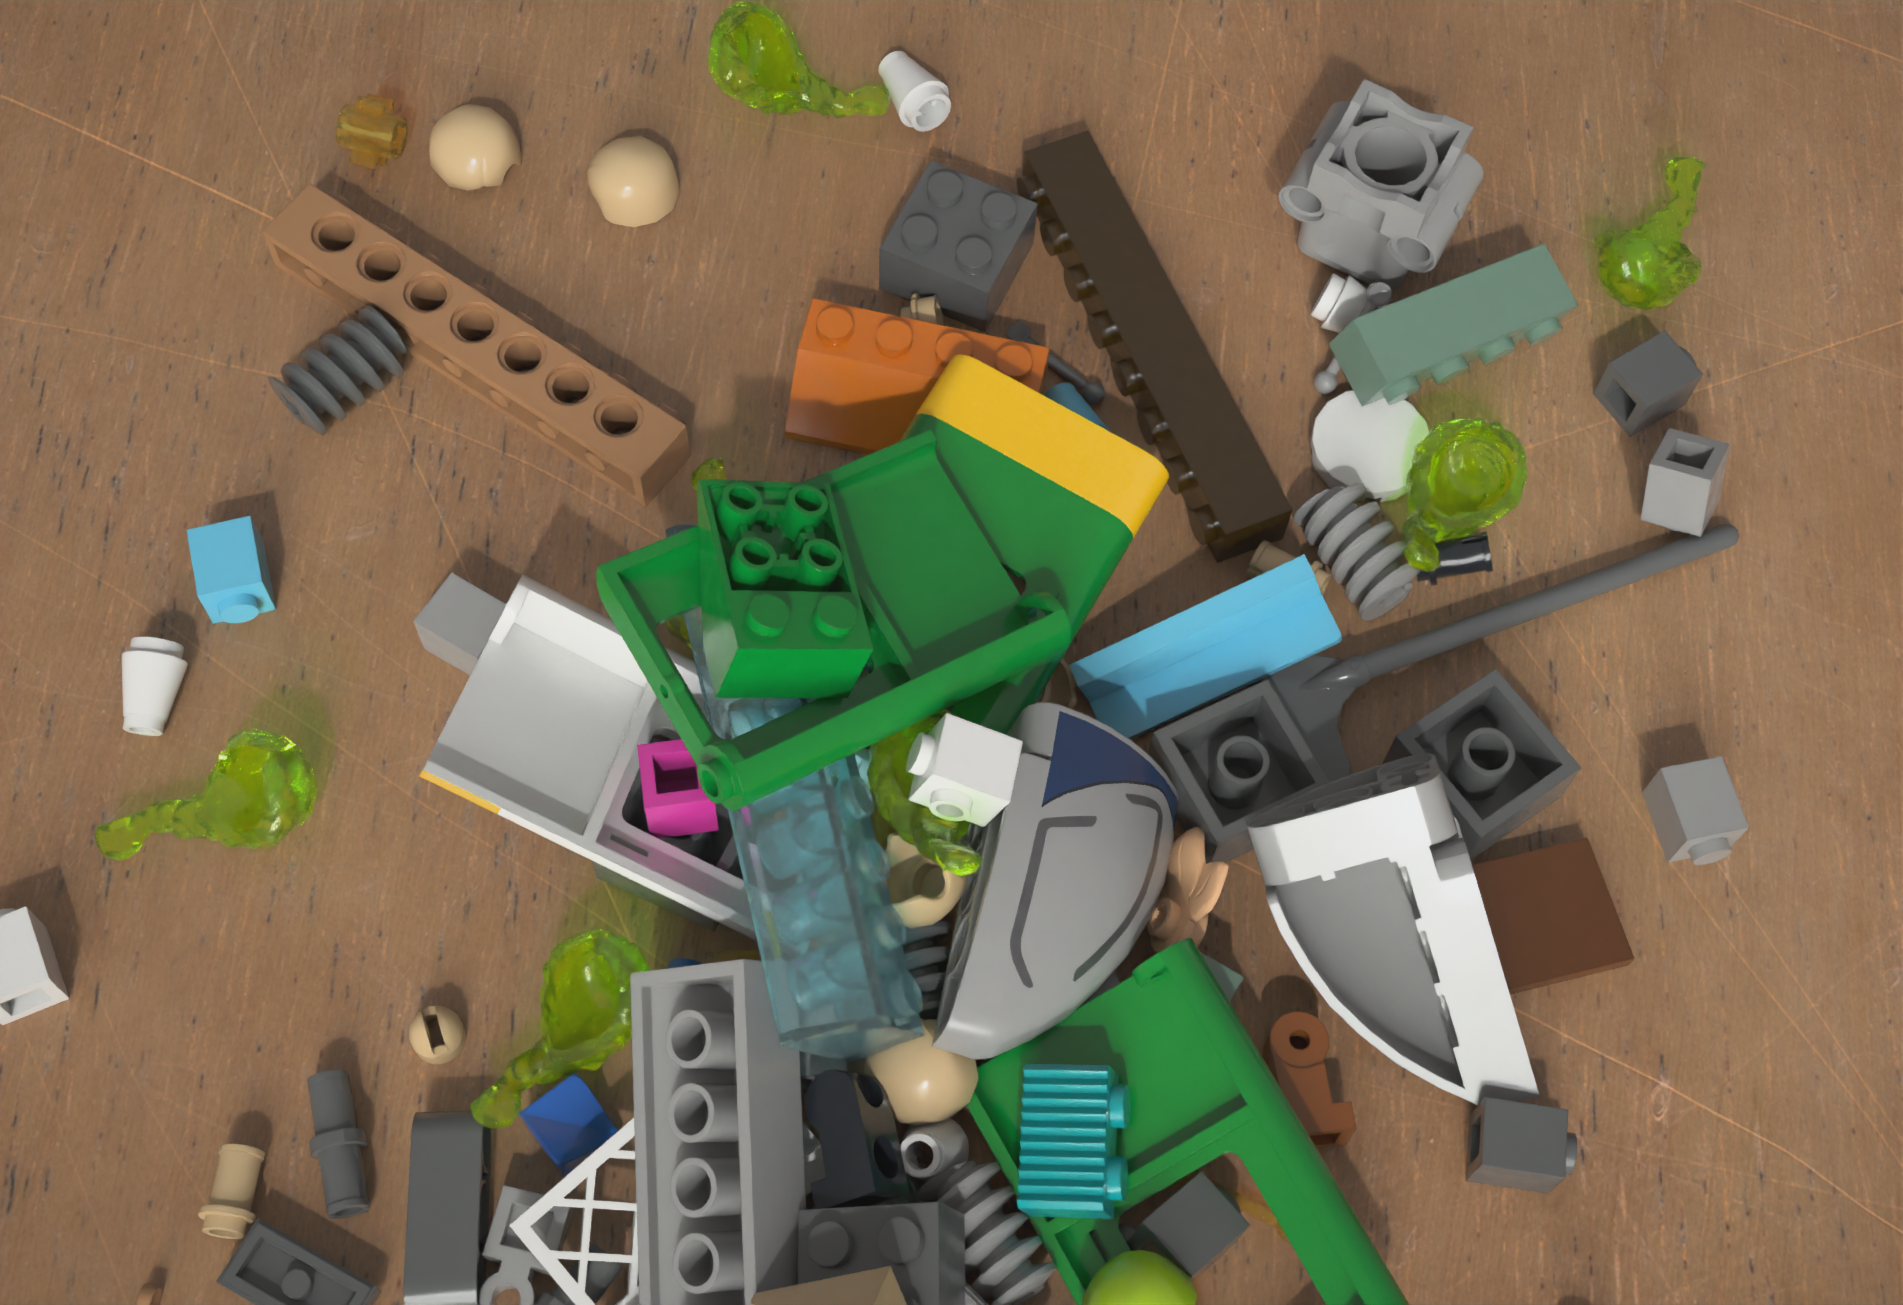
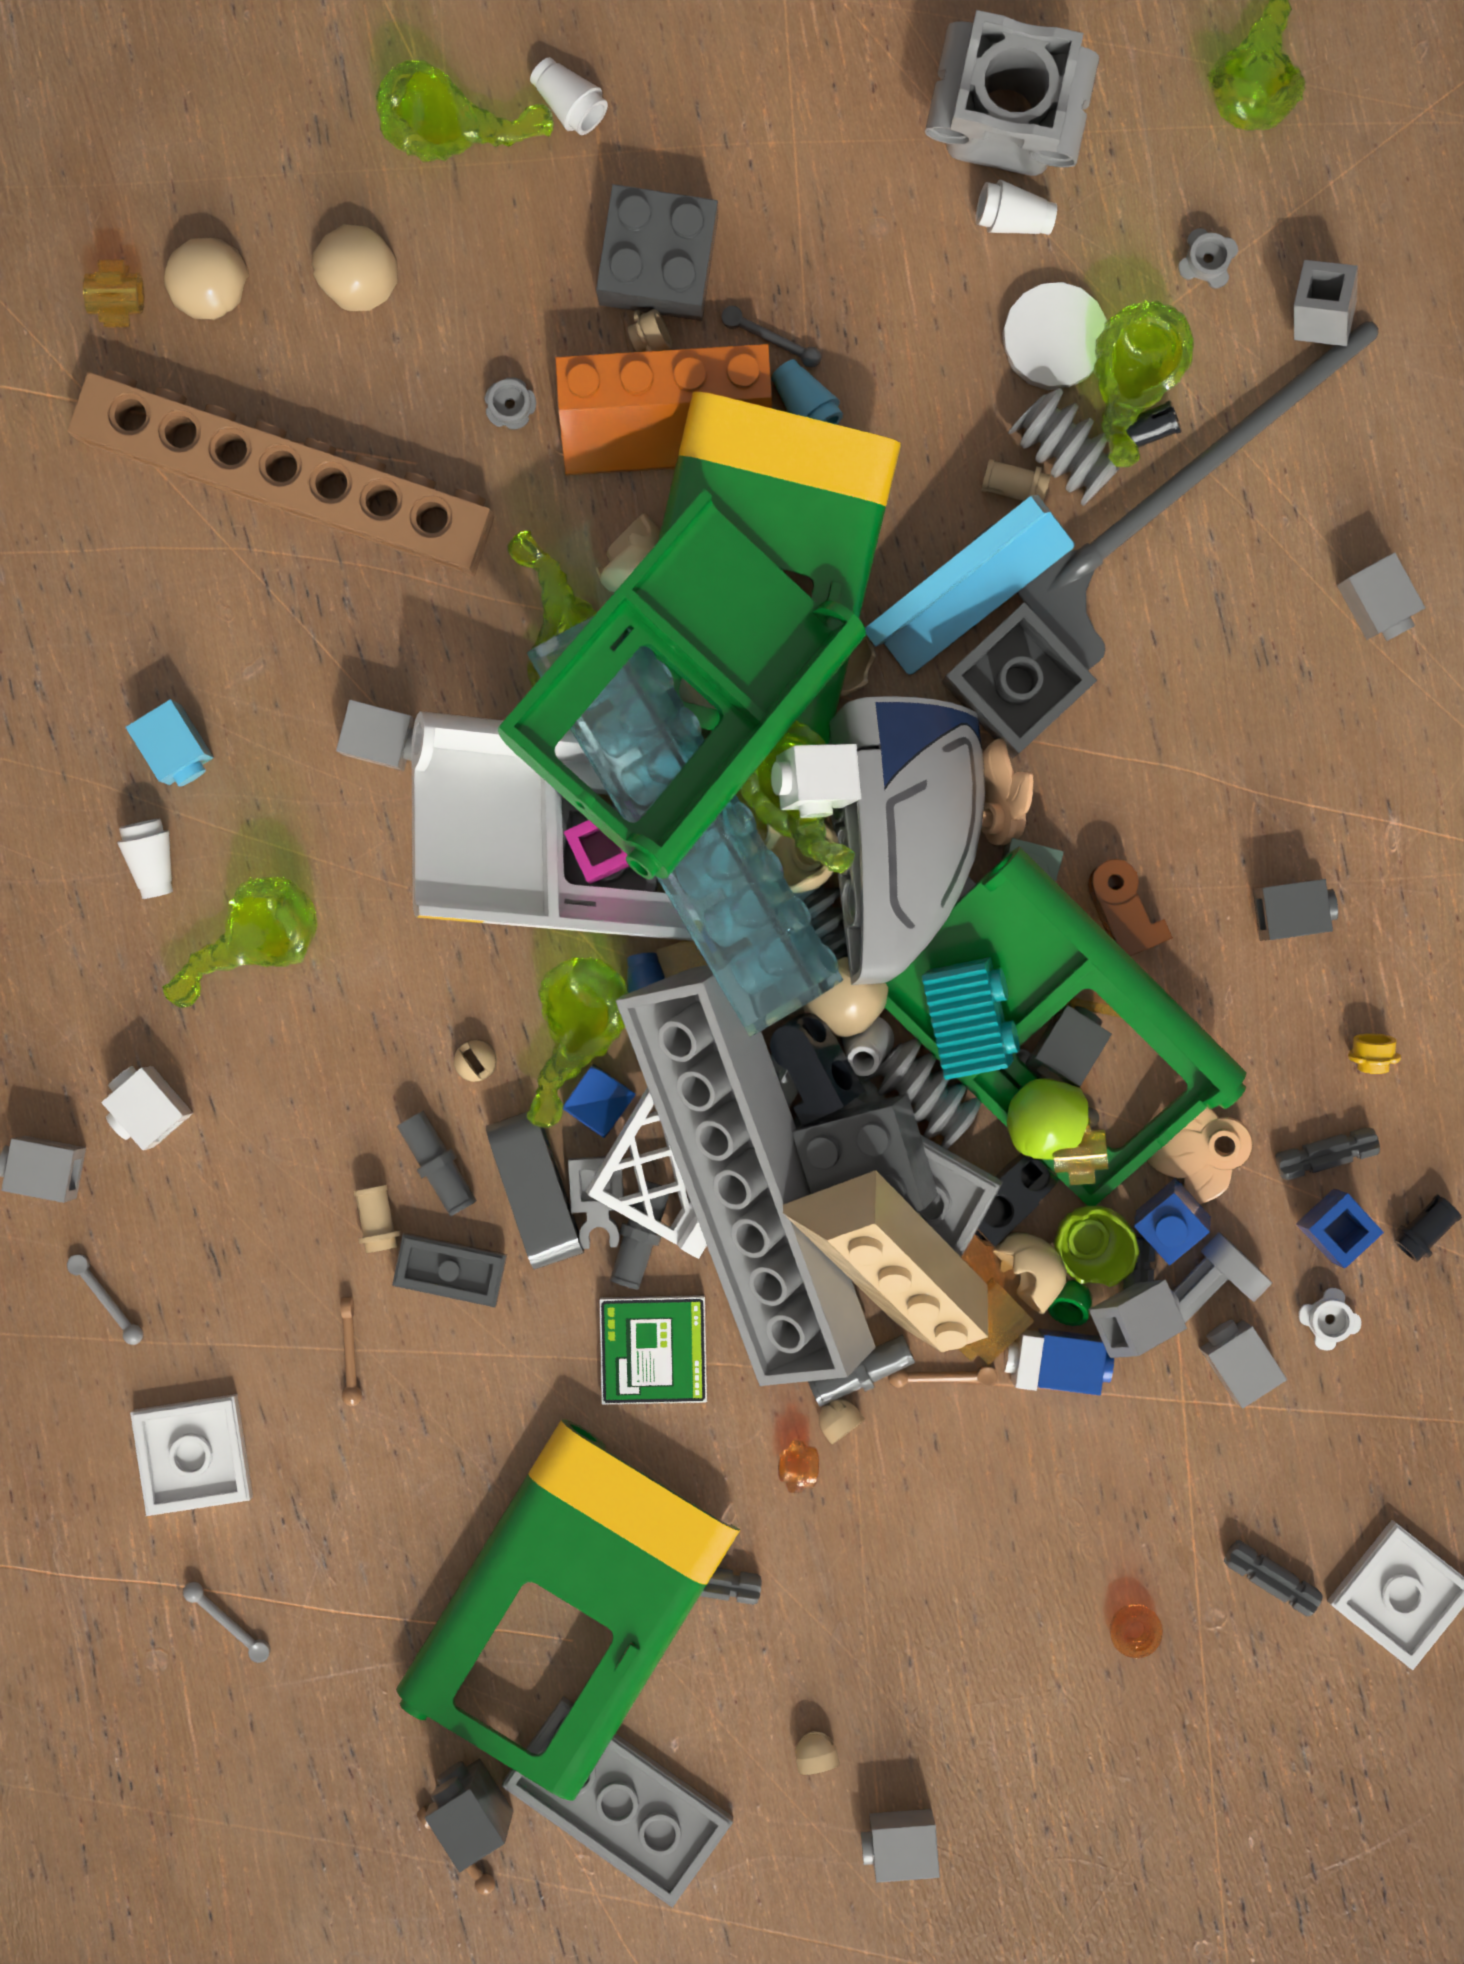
camera: 20 degrees left, 25 degrees up
(340, 369) = (184, 538): dark grey piece -> none
(744, 333) = (501, 392): none -> light grey plate
(777, 591) = (635, 688): green slope -> none
(1153, 349) = (845, 295): dark brown brick -> none
(1377, 295) = (1032, 200): light grey hinge -> none
(1394, 926) = (1165, 772): light grey panel -> none
(1453, 325) = (1104, 209): sand green brick -> none
(1492, 759) = (1206, 616): dark grey brick -> none
(1551, 916) = (1281, 717): reddish brown tile -> none
(1563, 401) = (1216, 245): none -> light grey plate
(1648, 383) = (1279, 206): dark grey brick -> none

